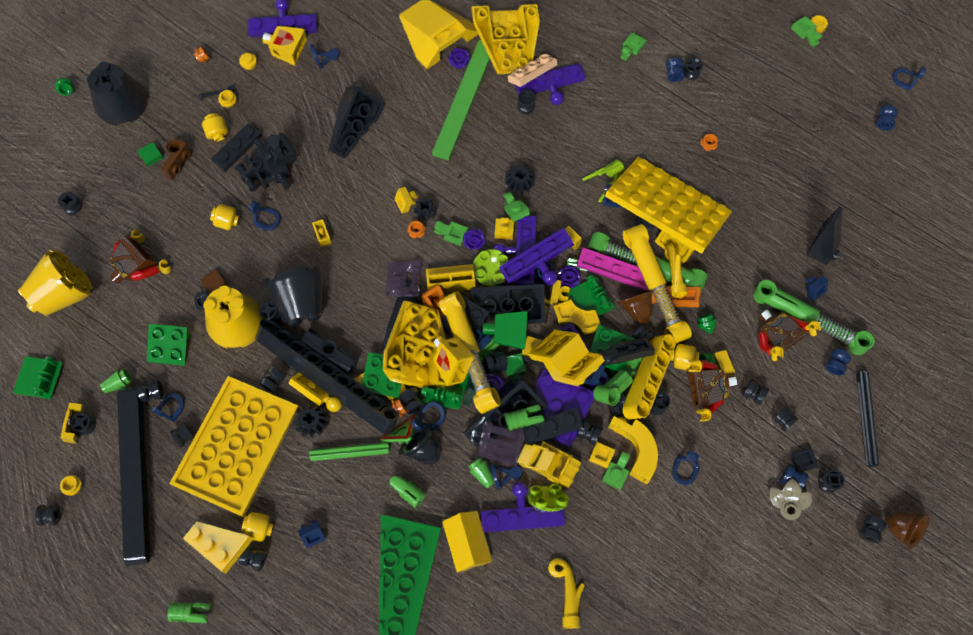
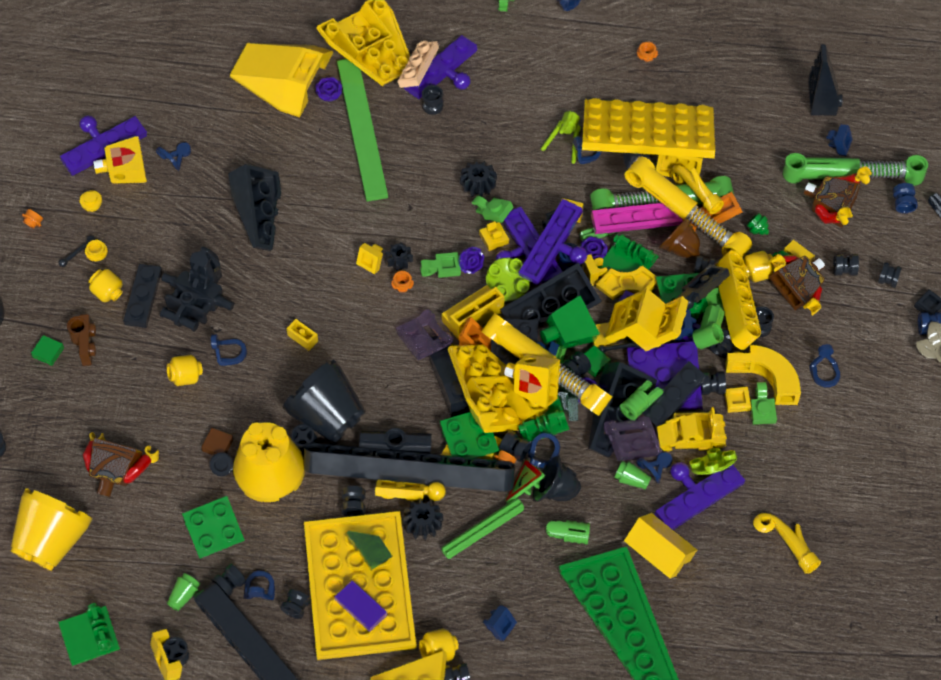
camera: 30 degrees left, 10 degrees down
(221, 464) = (361, 606): none -> dark purple tile
(255, 423) = (370, 547): none -> clear green slope

